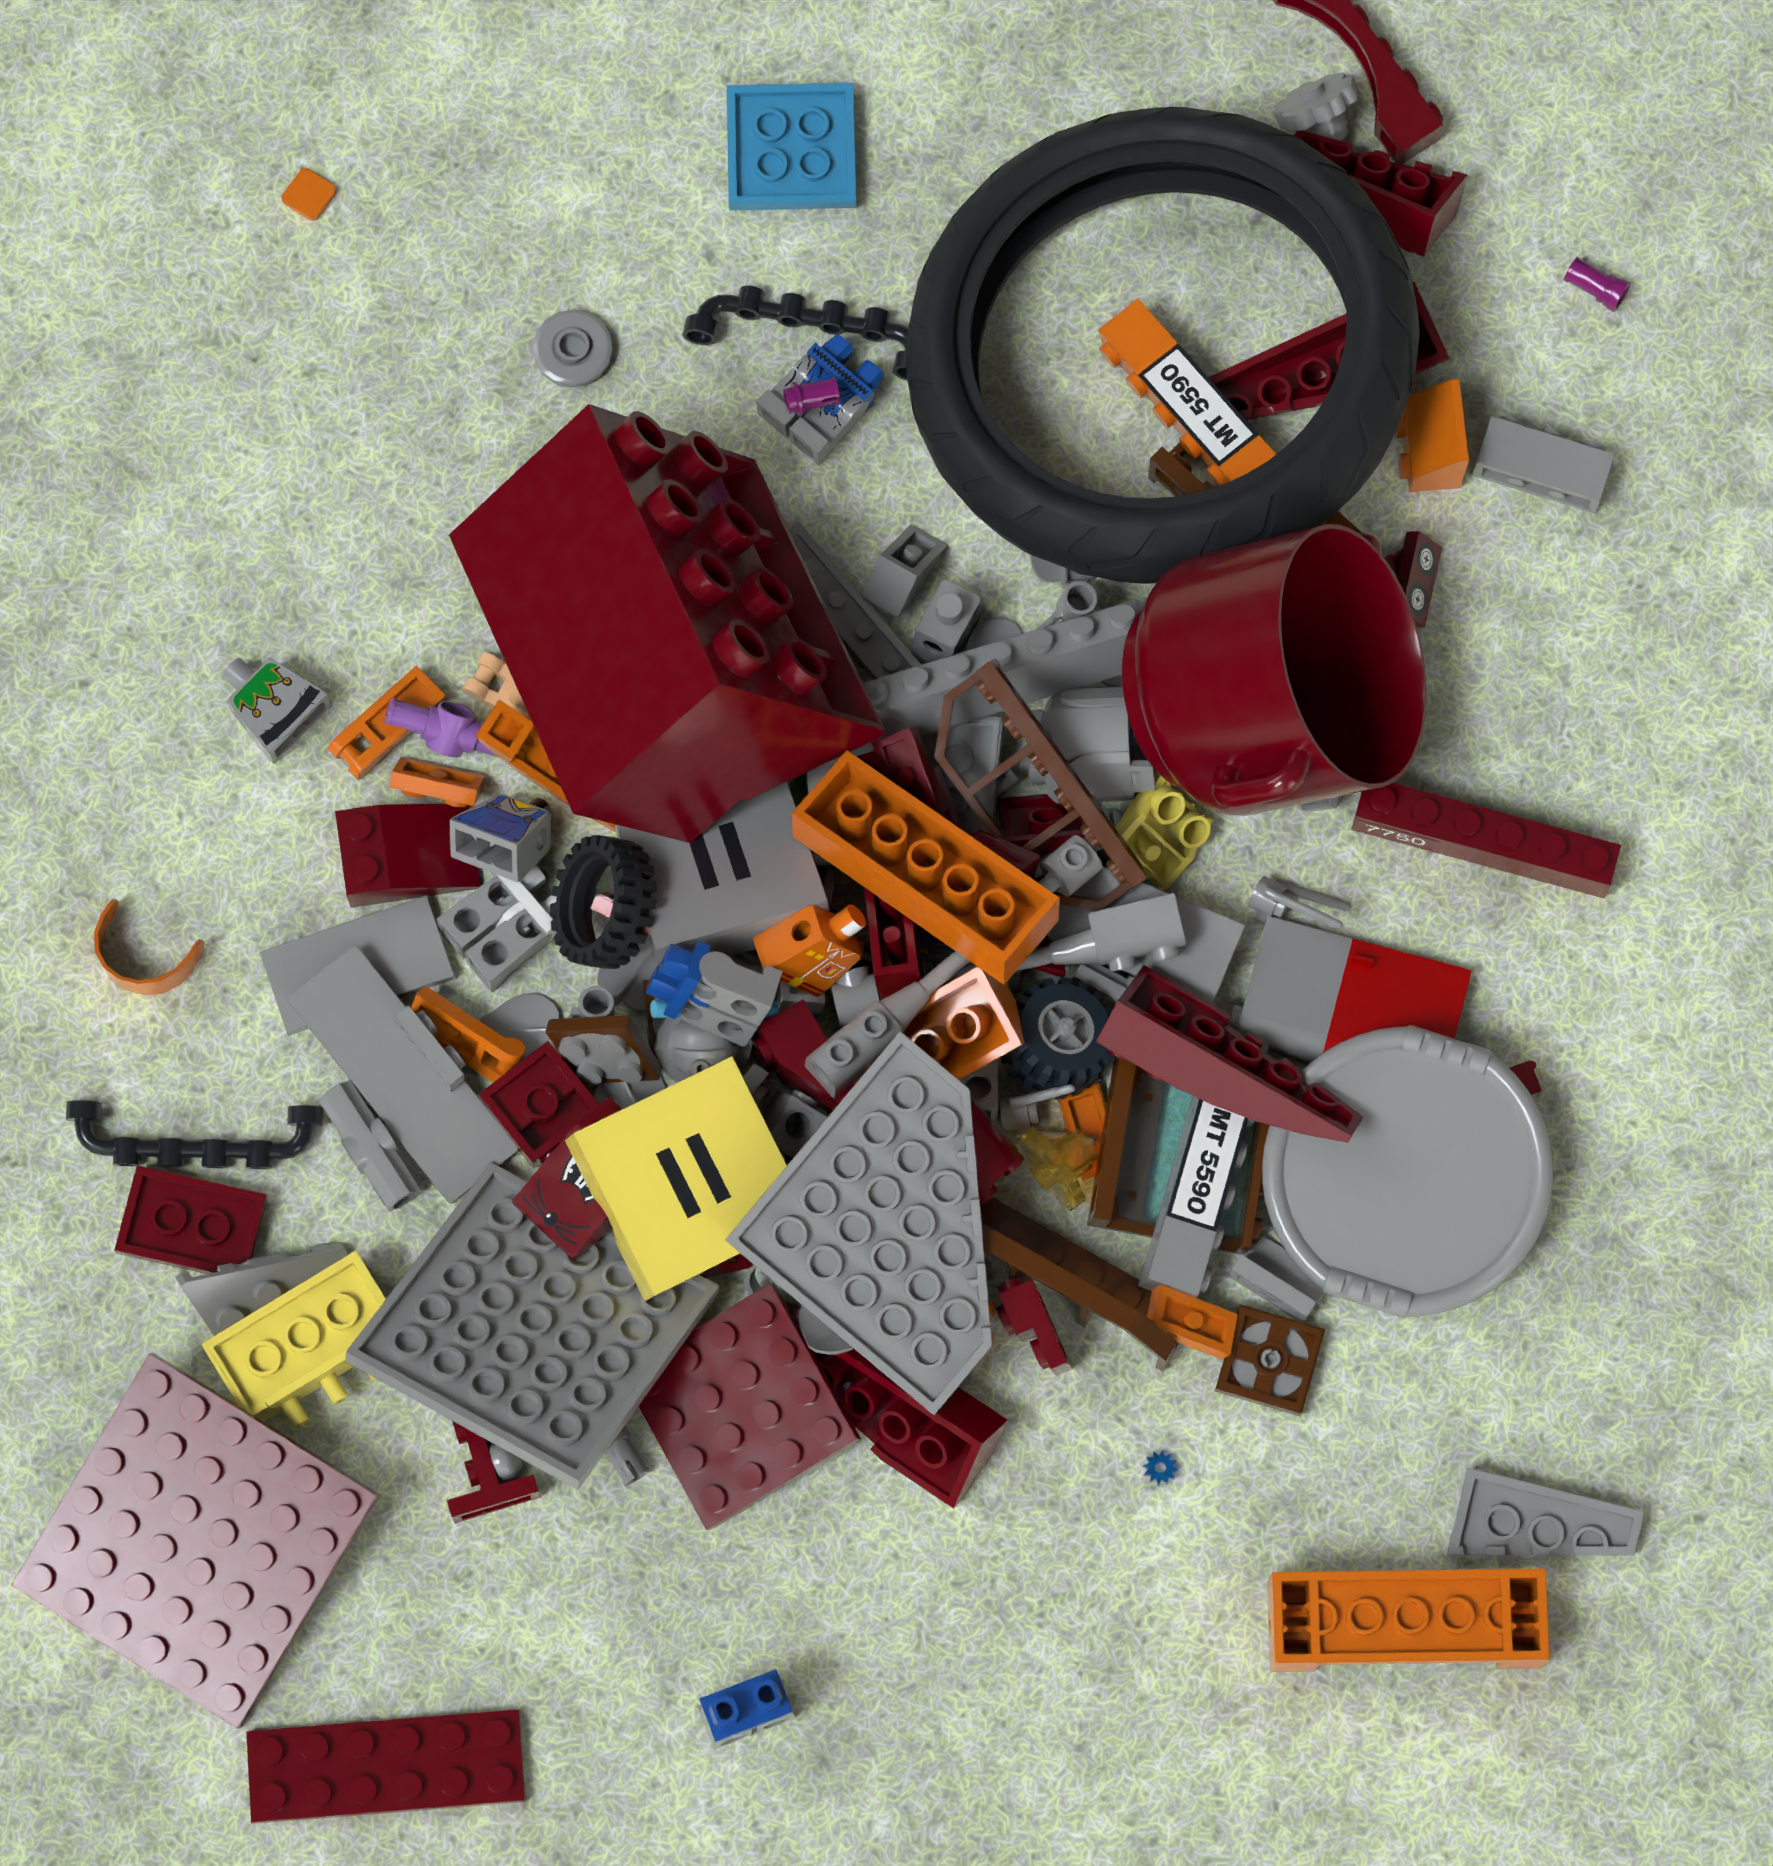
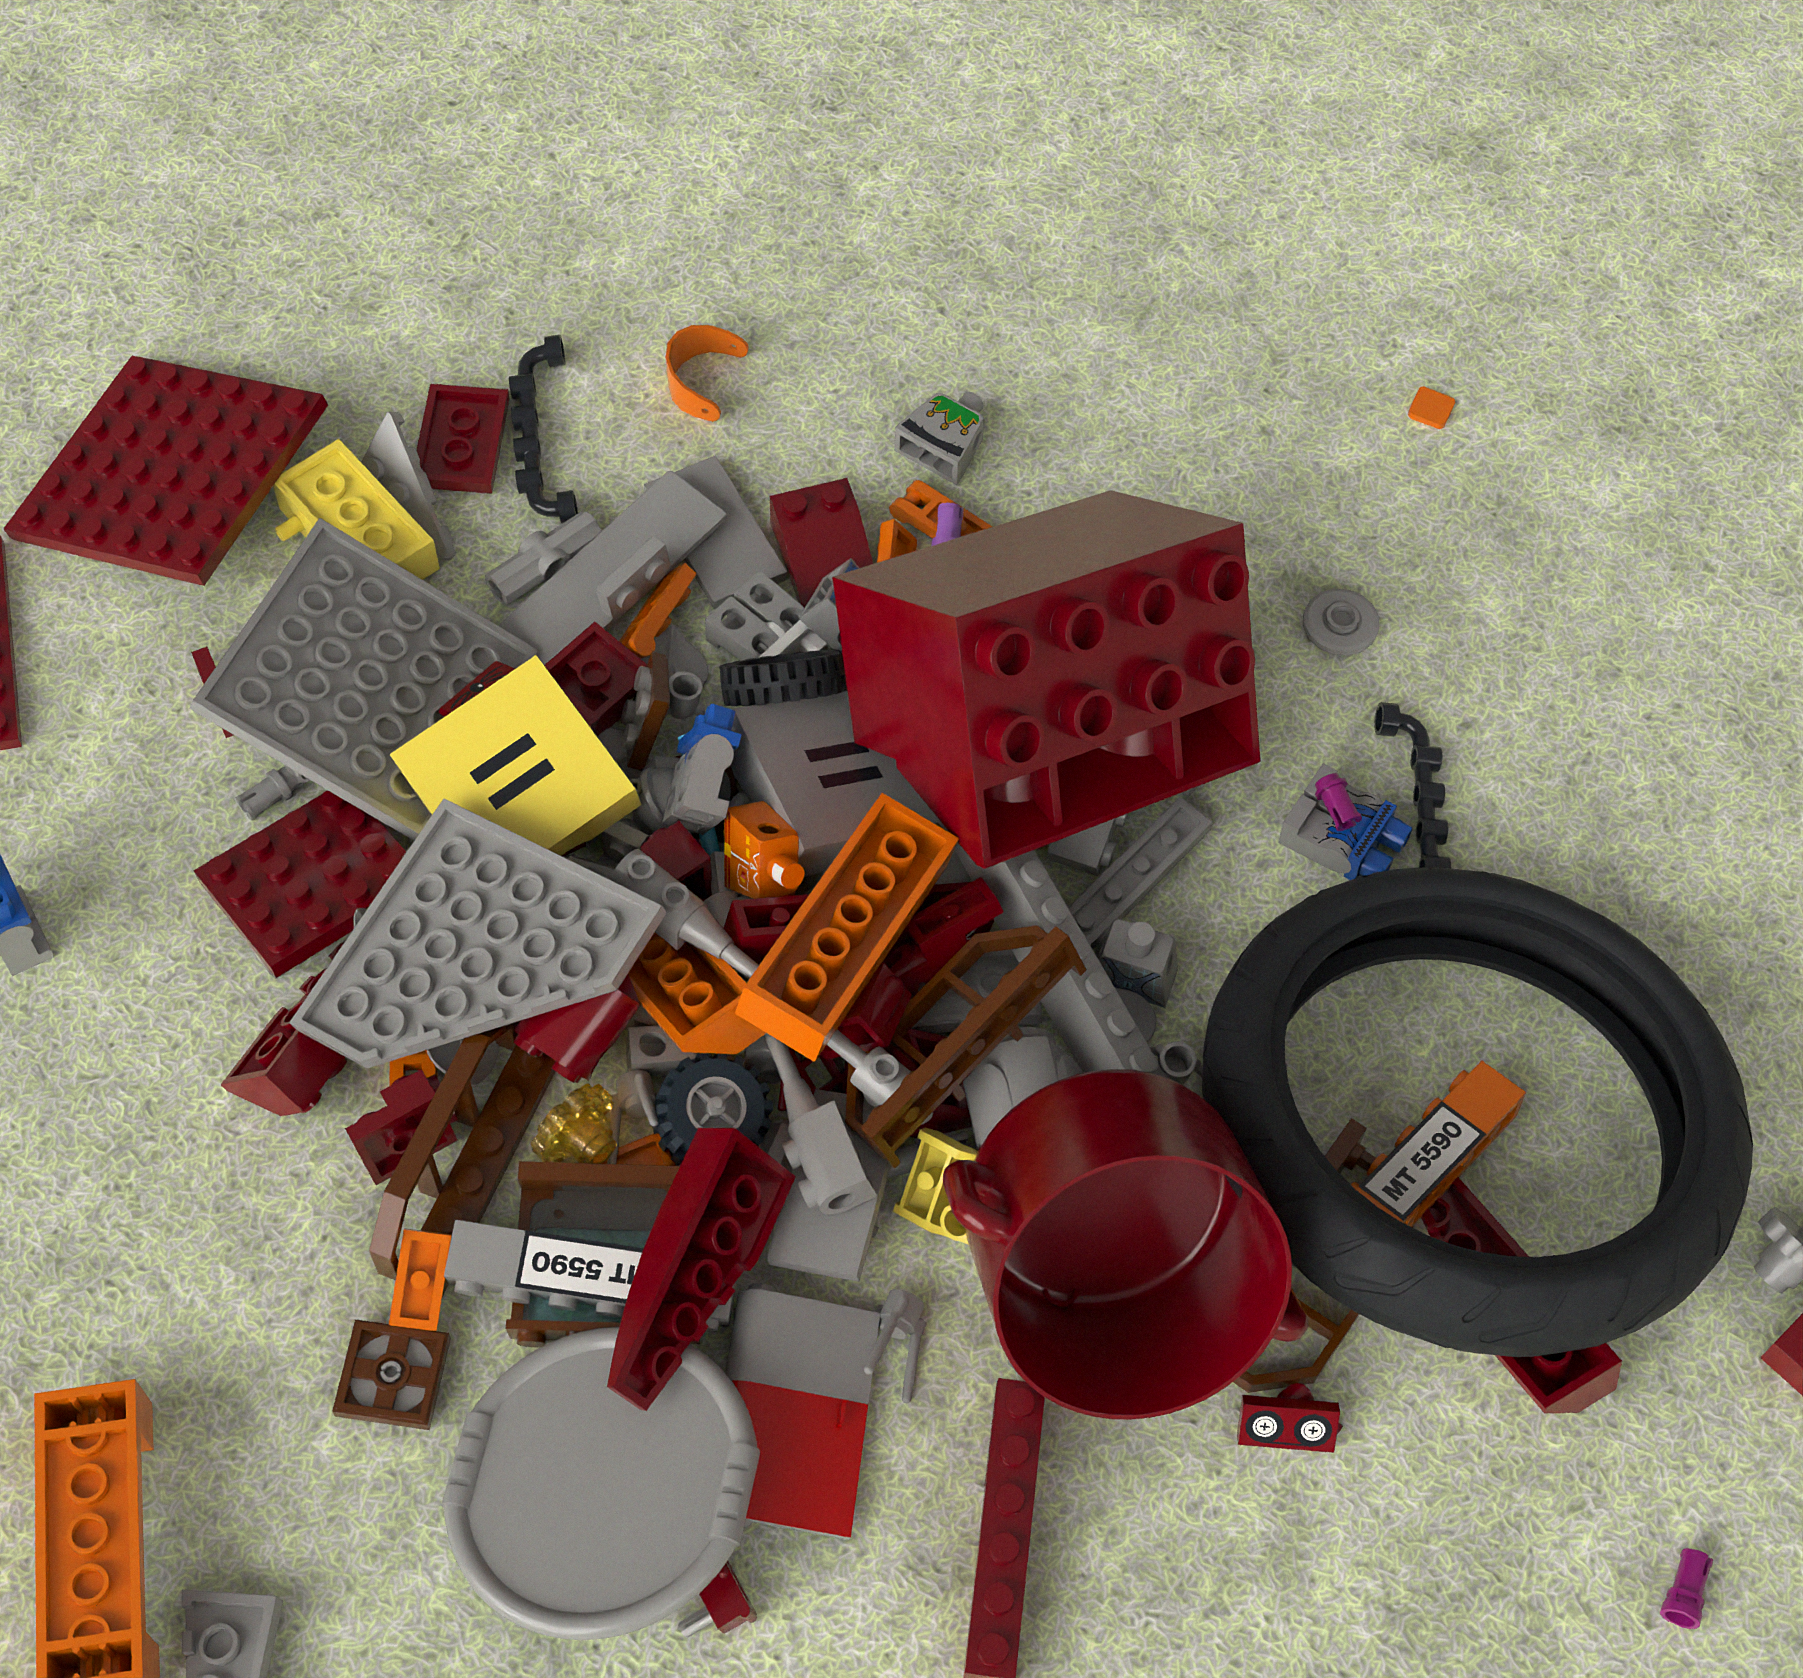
camera: 80 degrees right, 15 degrees down
(791, 146) = (1596, 773): dark azure plate -> none
(903, 570) = (1187, 916): light grey slope -> none
(1165, 1460) = (269, 1273): clear blue piece -> none
(1277, 1279) = (477, 1366): light grey panel -> none
(1410, 198) = (1714, 1335): dark red wedge -> none
(1434, 439) = (1452, 1419): orange slope -> none
(1543, 463) = (1457, 1550): light grey brick -> none

